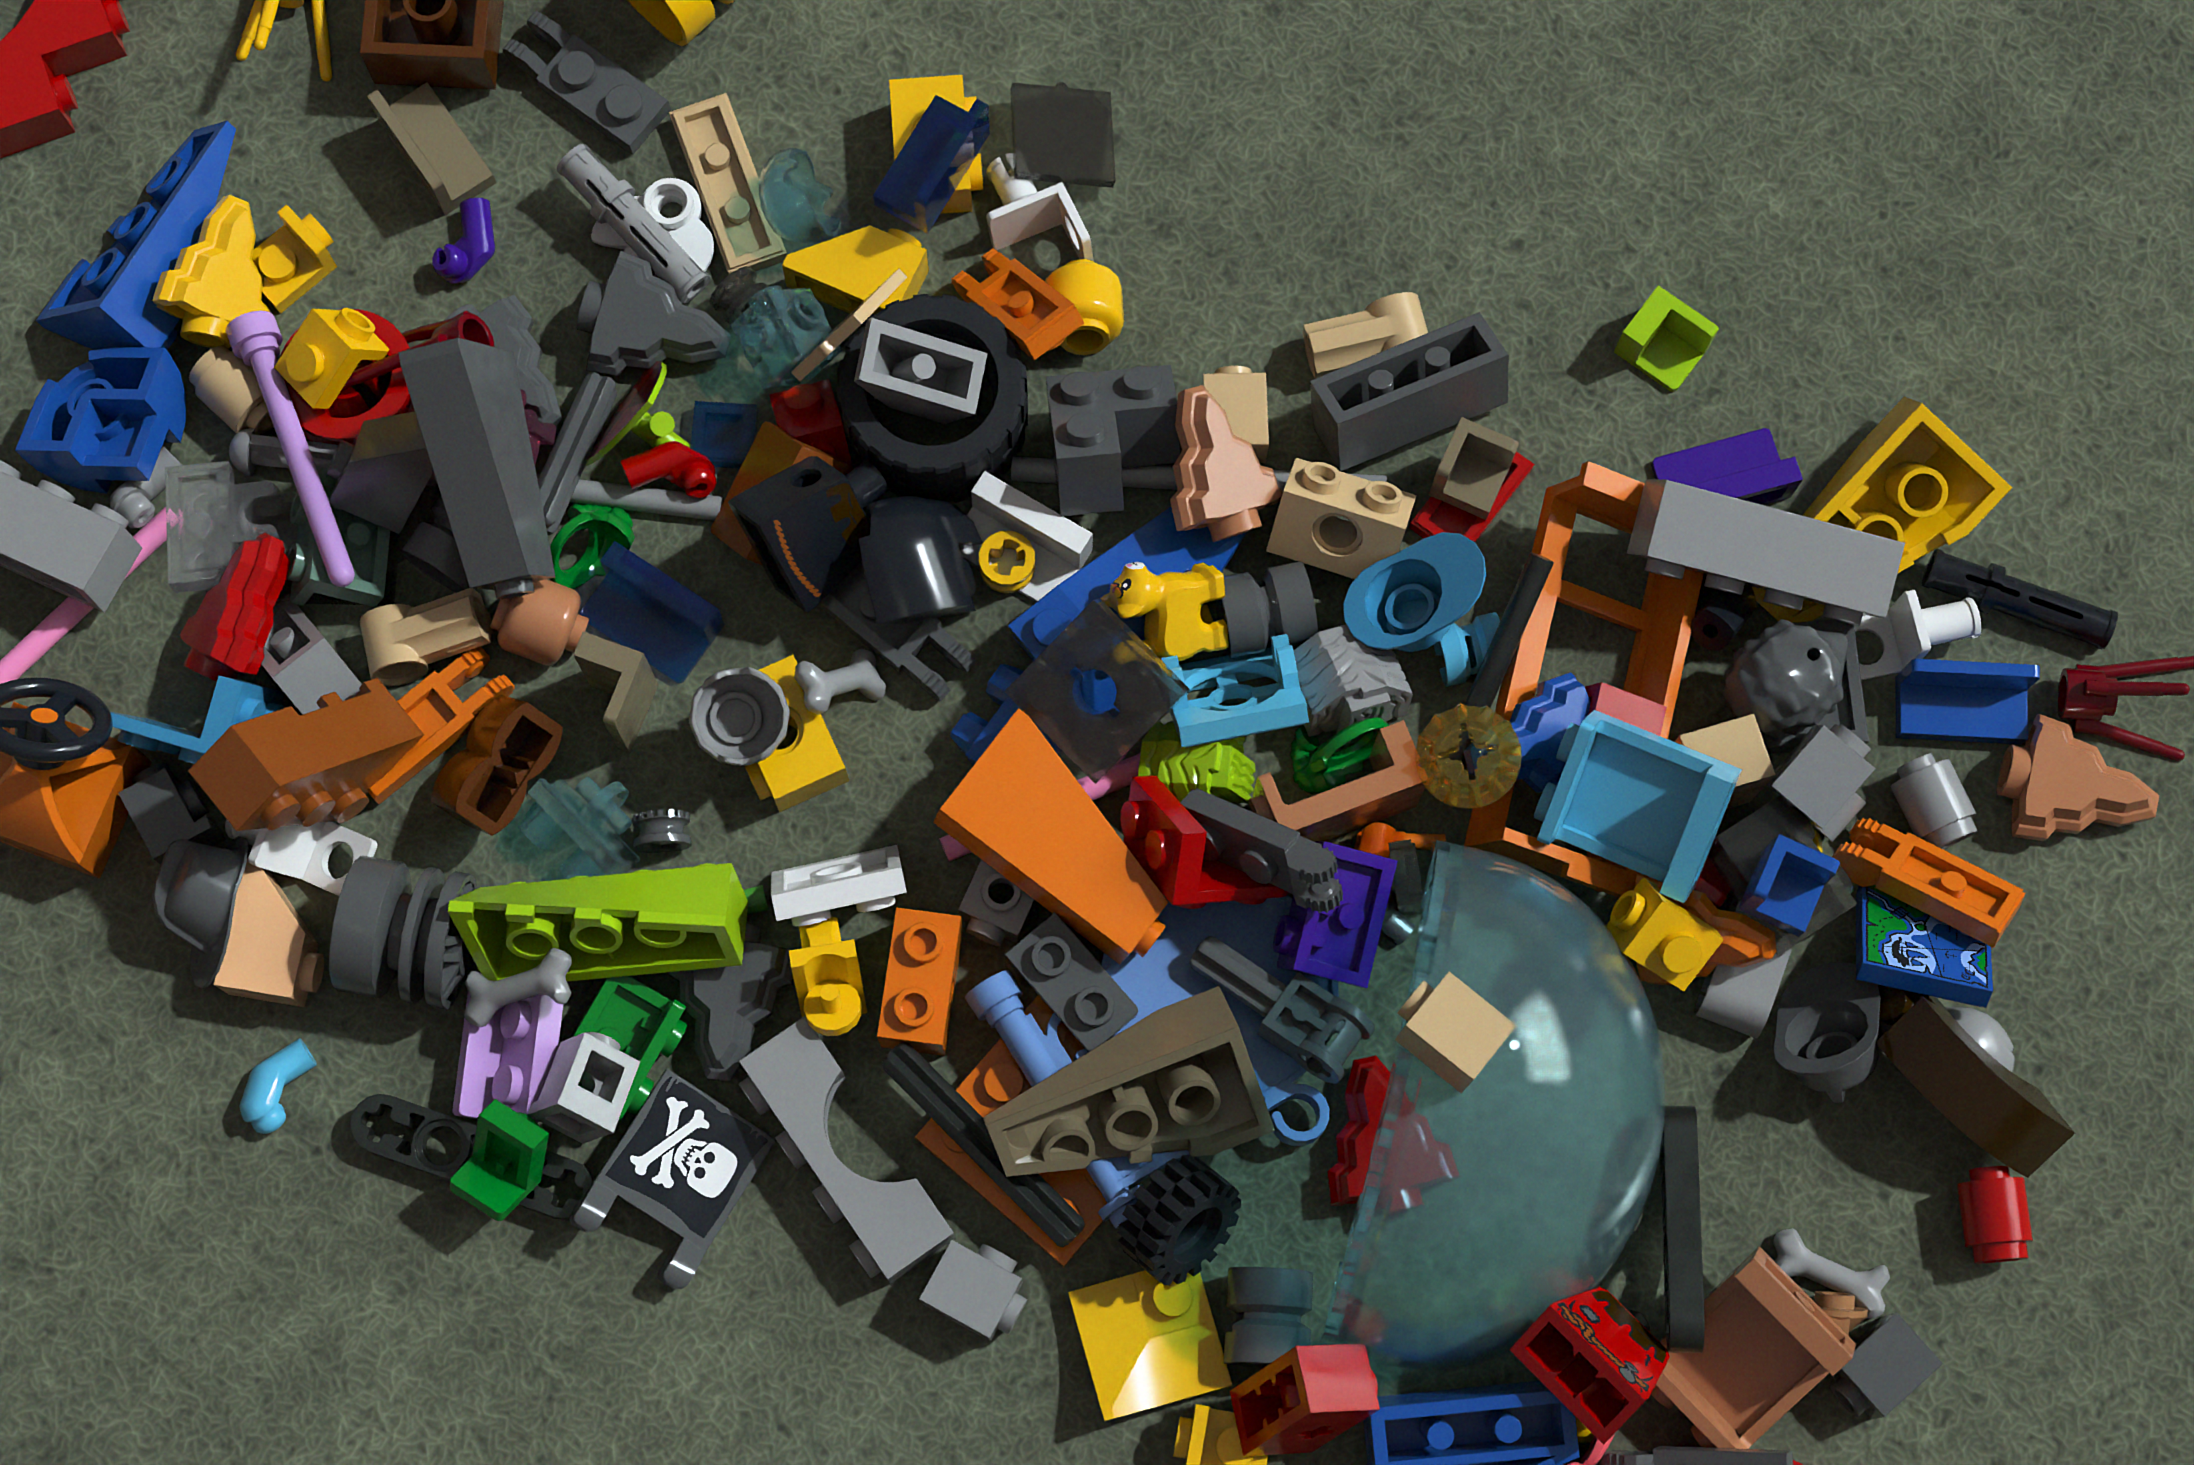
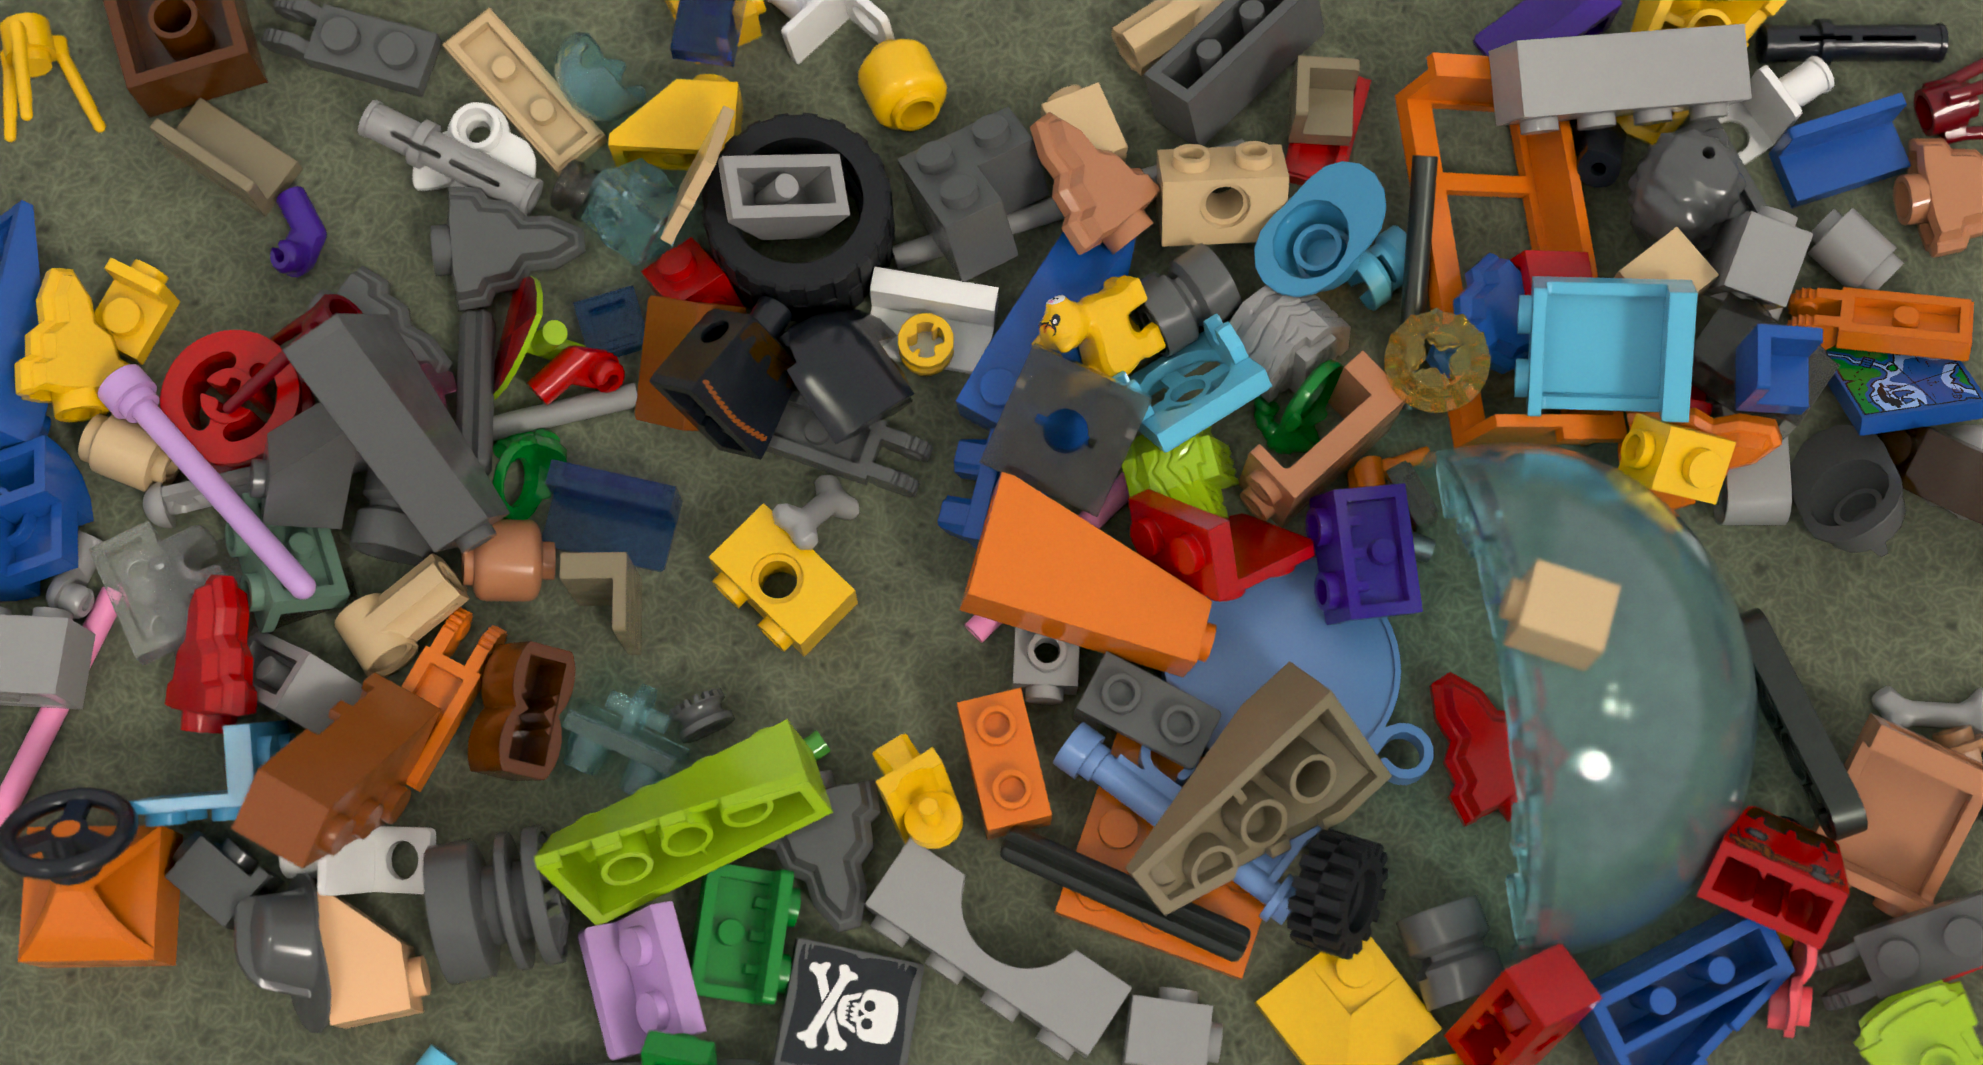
camera: 20 degrees left, 0 degrees up
(327, 353) = (207, 381): yellow bracket -> none
(544, 979) = (651, 897): light grey piece -> none
(605, 1079) = (731, 985): light grey brick -> none
(739, 716) = (740, 578): light grey hair -> none
(860, 879) = (875, 712): white plate -> none
(1022, 302) = (858, 98): orange hinge -> none
(1267, 851) = (1289, 518): dark grey hinge -> none
(1295, 1016) = (1368, 662): dark grey connector -> none

